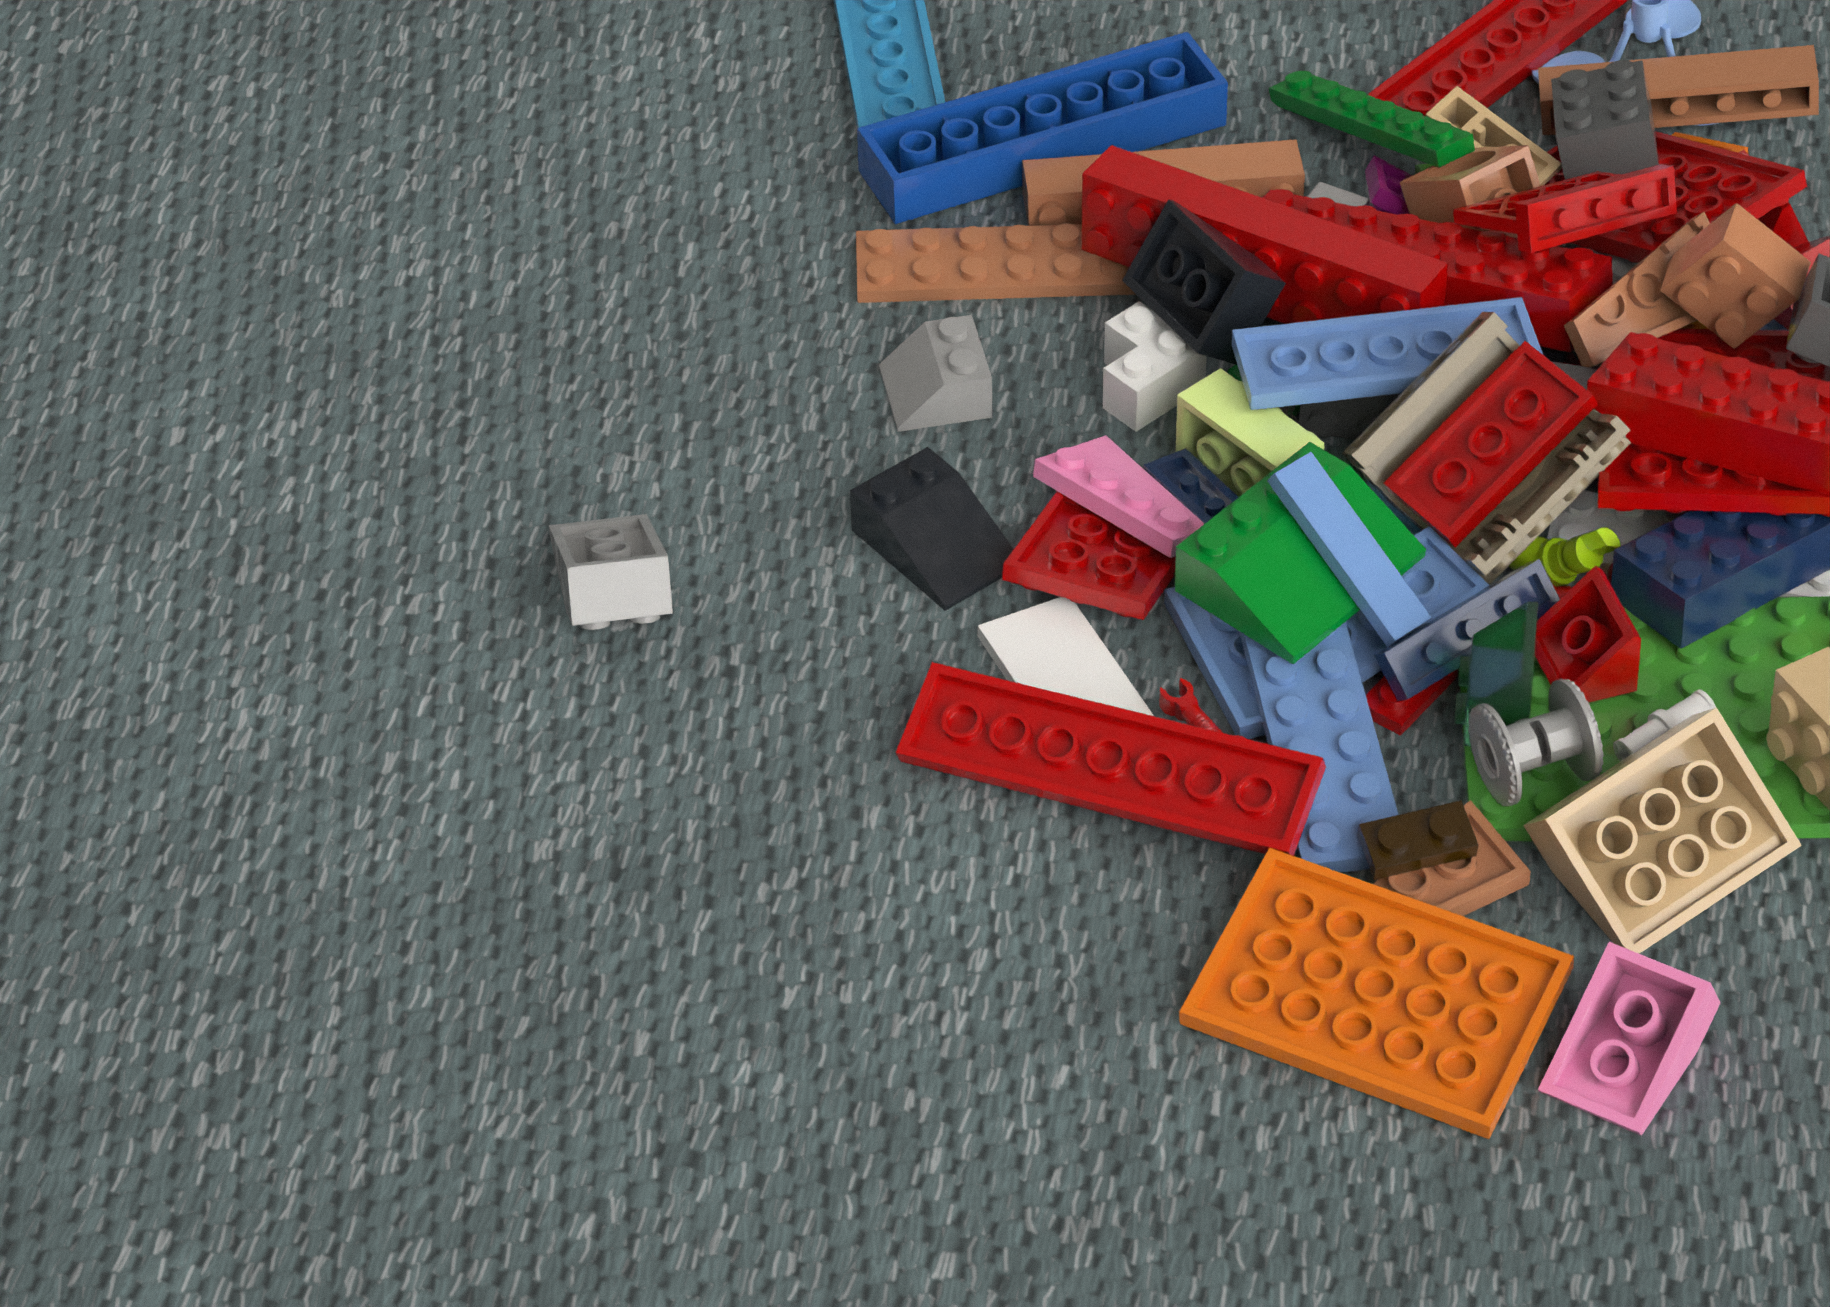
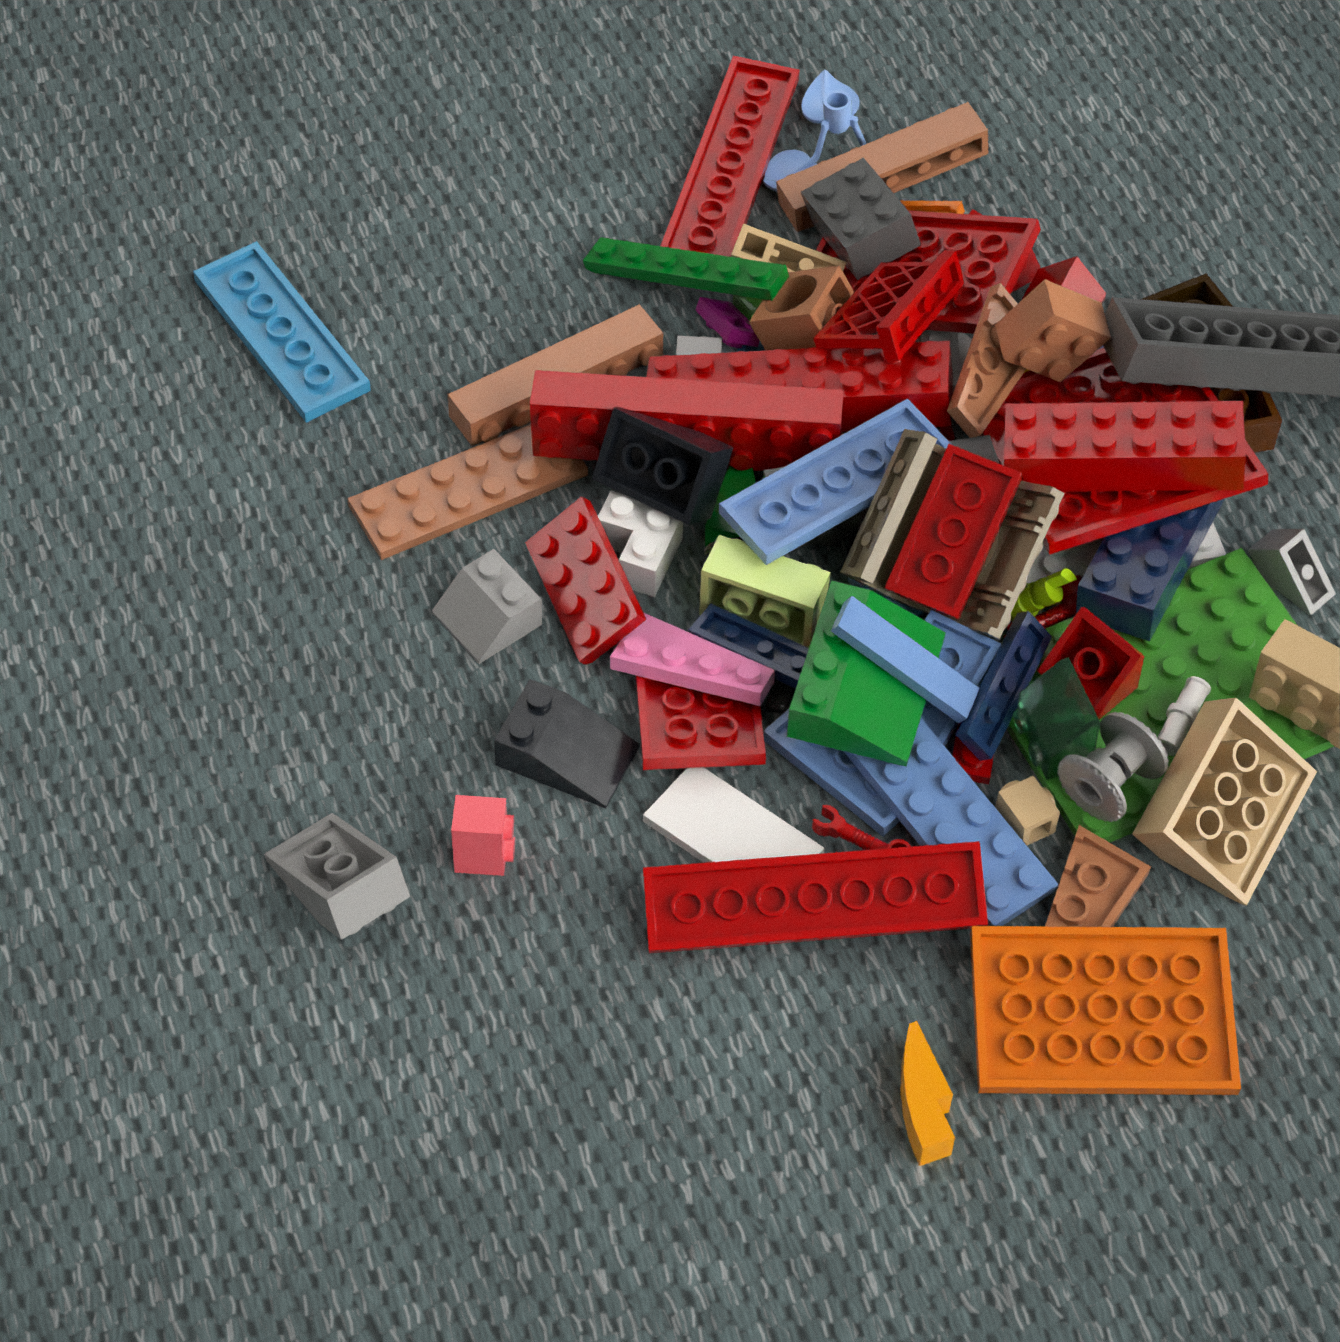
camera: 30 degrees left, 10 degrees up
(777, 574) = (482, 835): none -> coral brick
(979, 140) = (441, 352): blue brick -> none
(1058, 381) = (585, 581): none -> plate
(1105, 1000) = (925, 1100): none -> light orange slope
(1417, 840) = (1066, 875): dark brown plate -> none
(1421, 768) = (1028, 809): none -> tan brick
(1630, 1038) = (1291, 977): bright pink slope -> none

